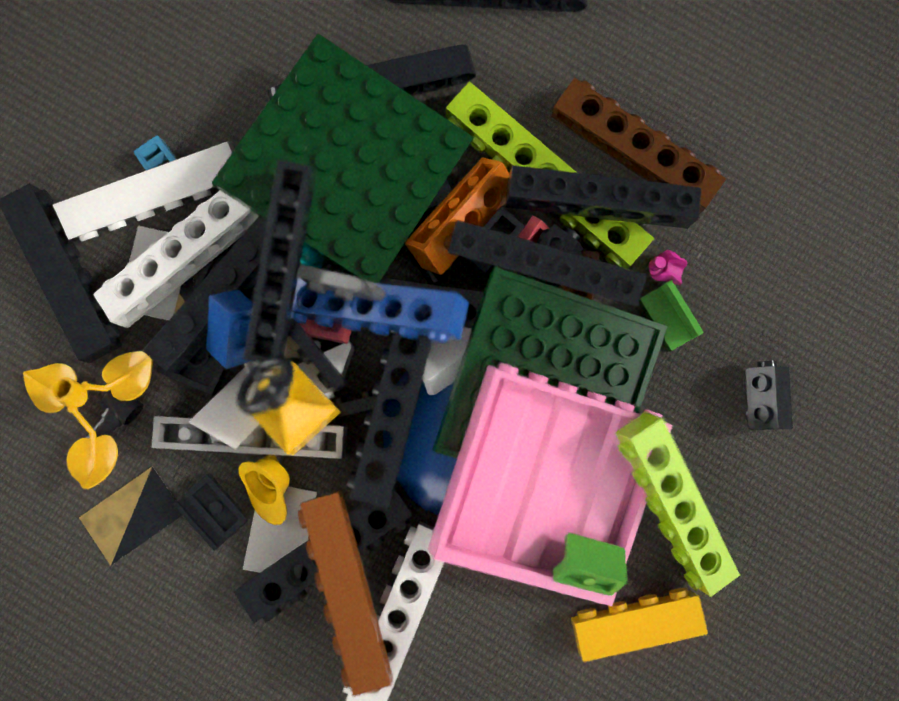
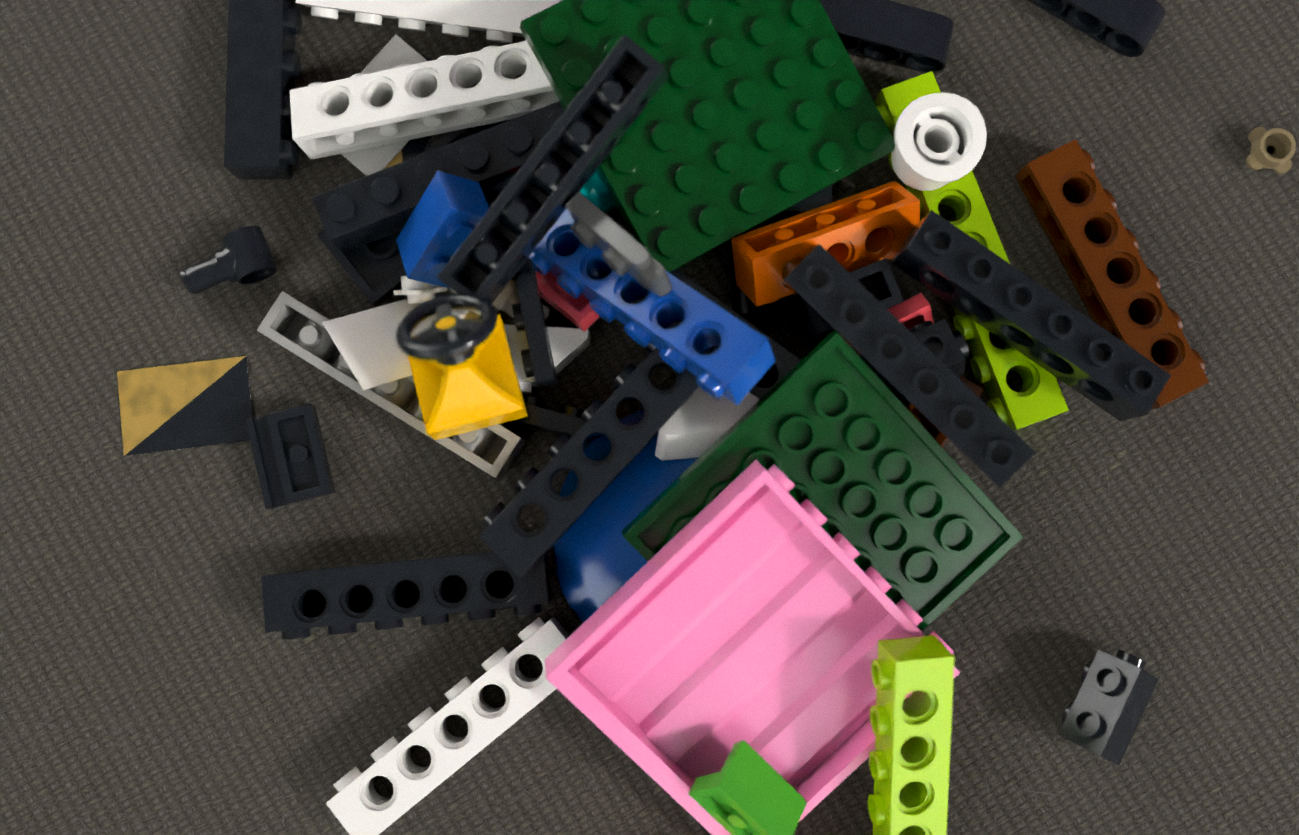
camera: 25 degrees right, 0 degrees up
(57, 386) = (179, 187): yellow plant -> none
(235, 373) = (418, 291): none -> white plate
(266, 485) = (378, 460): yellow piece -> none
(272, 542) = (367, 521): white sticker -> none
(346, 594) = (406, 660): dark orange brick -> none
(494, 122) = (937, 141): none -> white piece
(667, 267) = (1064, 459): dark pink arm -> none
(669, 309) = (1039, 515): bright green panel -> none
(694, 15) = (1279, 141): none -> dark tan plate

